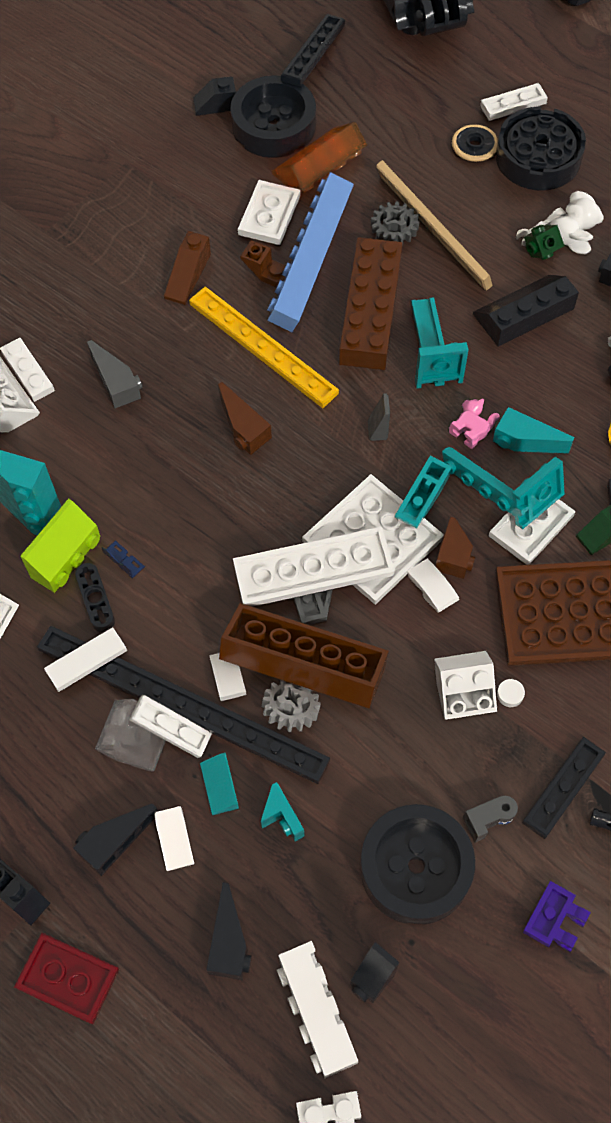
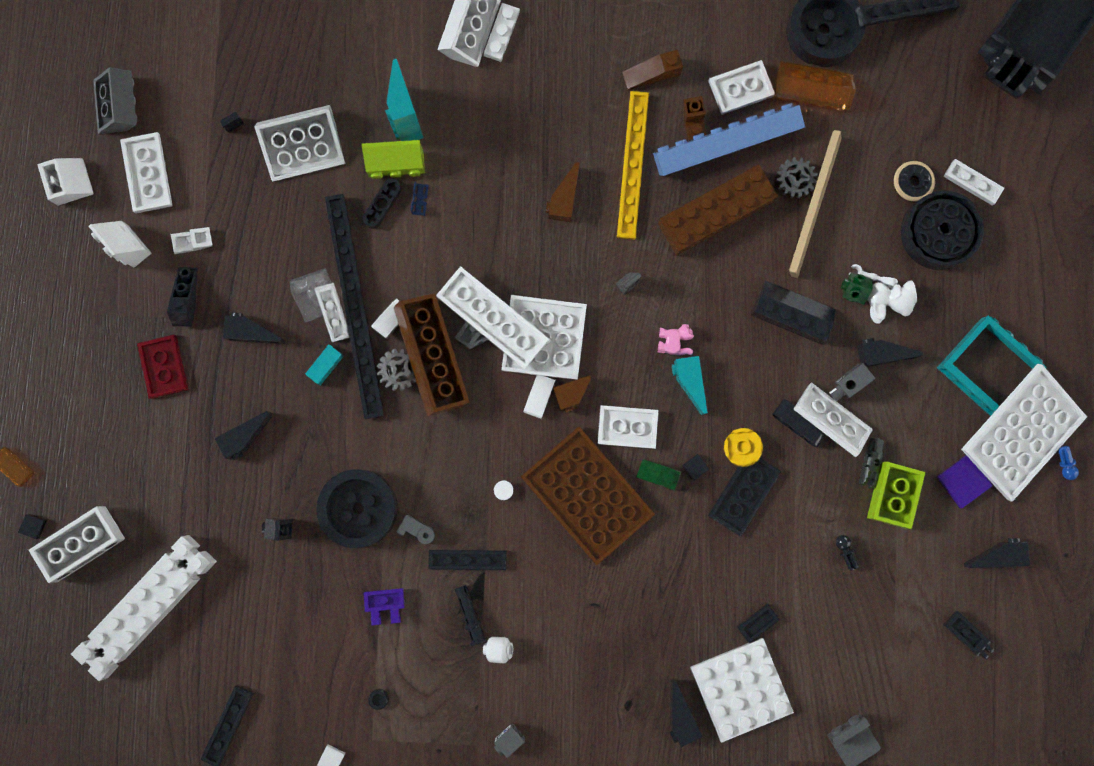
camera: 50 degrees right, 20 degrees up
(85, 659) = (336, 231): white tile -> none
(116, 376) = (534, 95): dark grey slope -> none
(174, 838) = (275, 364): white slope -> none
(279, 807) = (334, 408): teal slope -> none
(317, 1010) = (238, 511): white wedge -> none
(424, 492) = (593, 347): teal slope -> none
(435, 360) = (700, 288): teal bracket -> none
(466, 684) = (487, 460): white slope -> none
(525, 502) = (637, 416): teal bracket -> none

